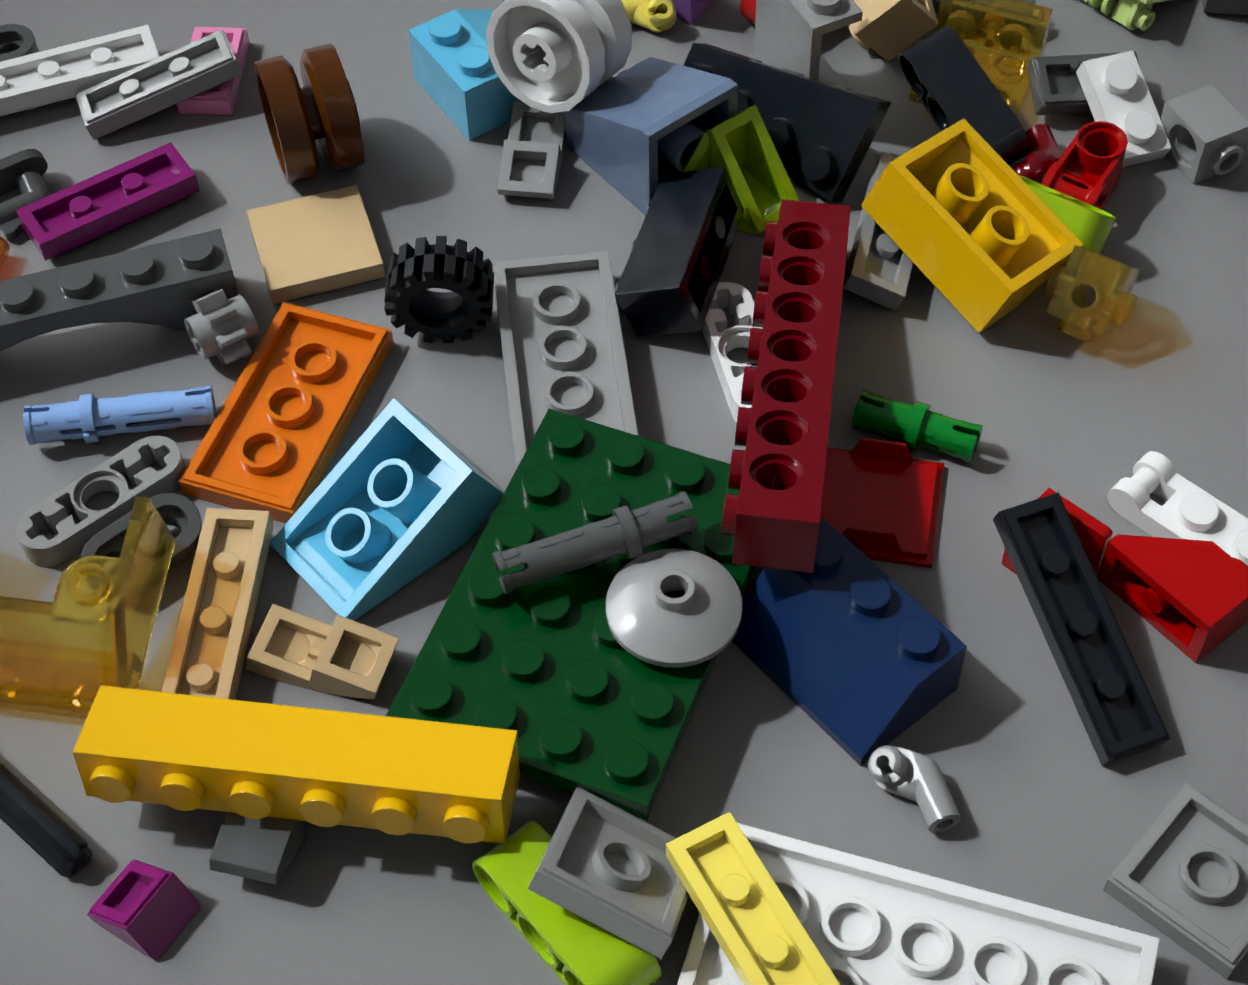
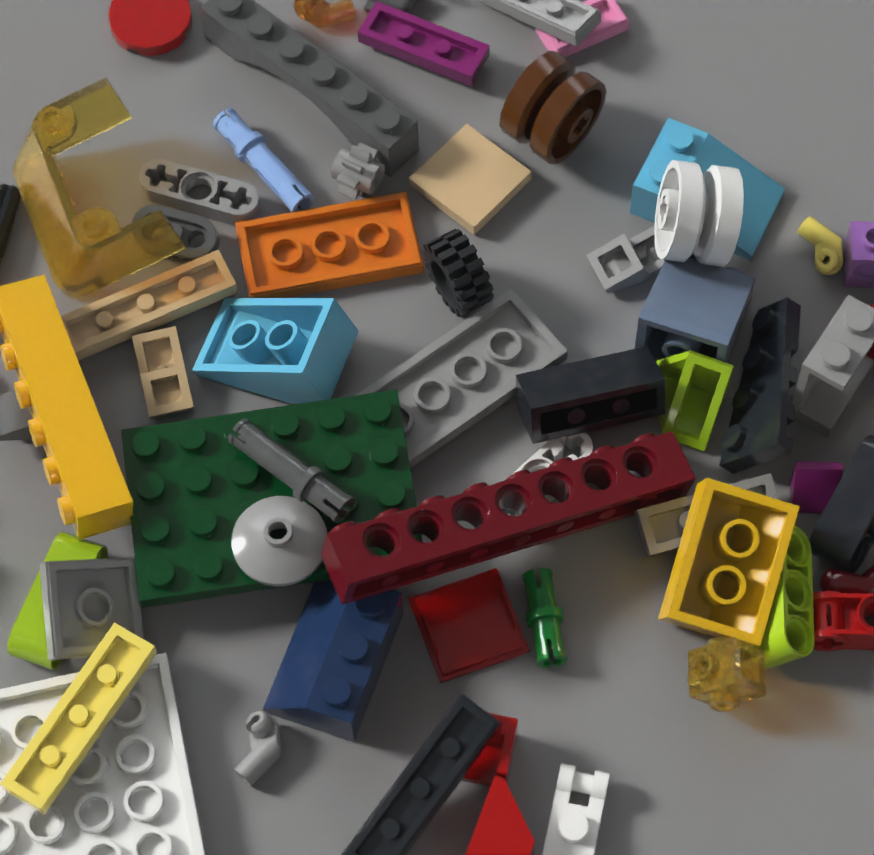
camera: 60 degrees right, 10 degrees up
(909, 125) = (814, 484): none -> magenta slope

